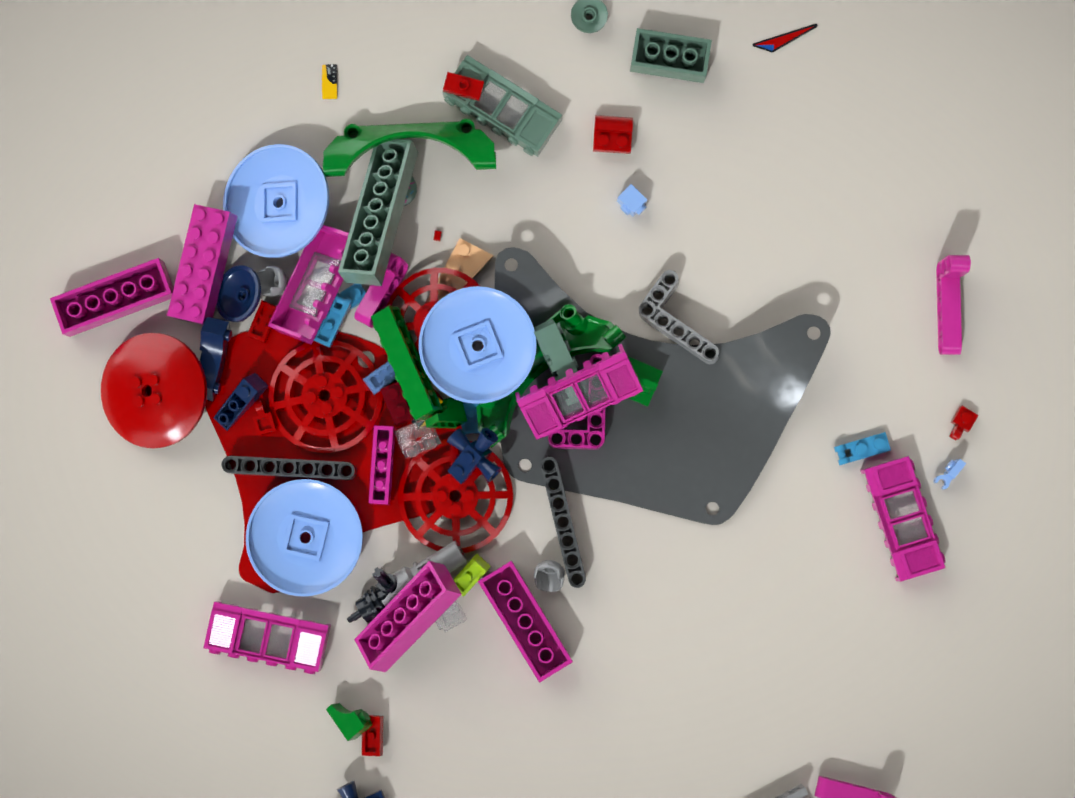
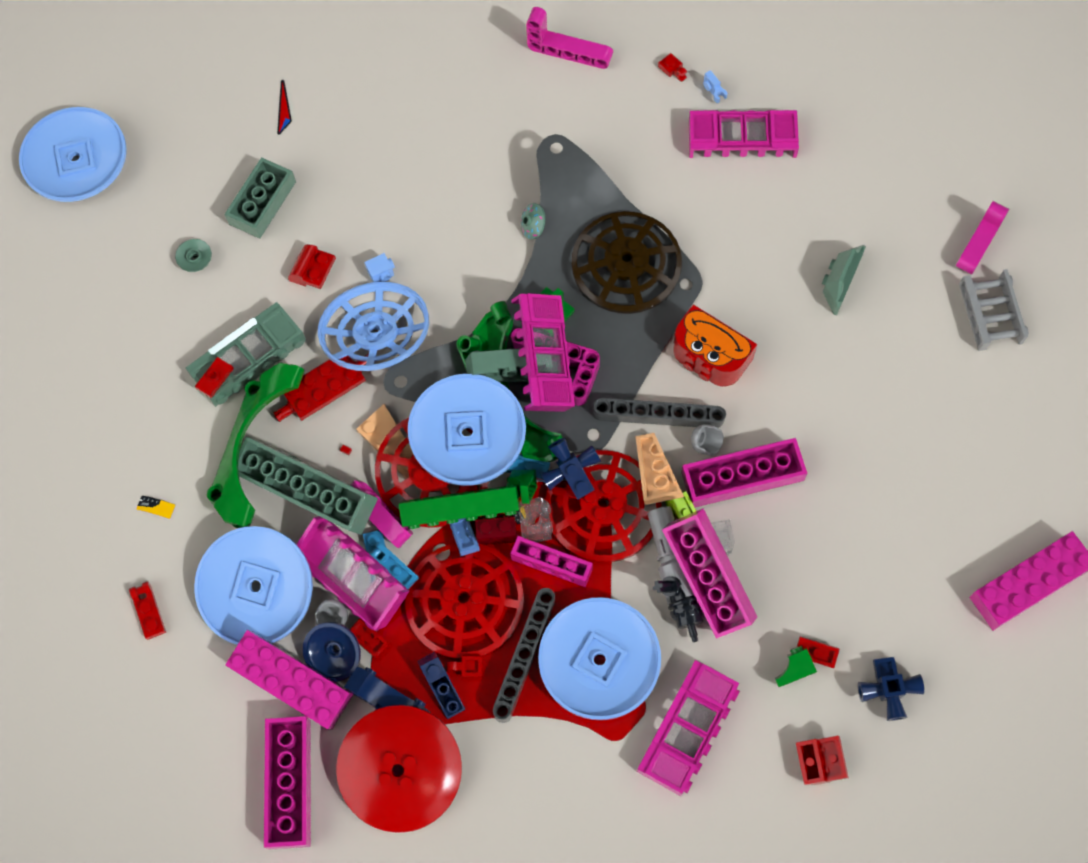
camera: 70 degrees left, 15 degrees down
(230, 114) = (147, 611): none -> red plate
(272, 765) = (822, 760): none -> red brick
(494, 193) = (321, 388): none -> red plate
(497, 537) = (655, 472): none -> light nougat wing
(571, 210) = (375, 320): none -> light blue dish
(644, 553) = (712, 348): none -> brick
(673, 324) = (505, 263): light grey beam -> none
(704, 448) = (626, 270): none -> dark brown dish
(730, 334) = (533, 221): none -> sand green dish
(768, 662) = (841, 276): none -> sand green wedge
(863, 448) = (671, 148): dark azure plate -> none

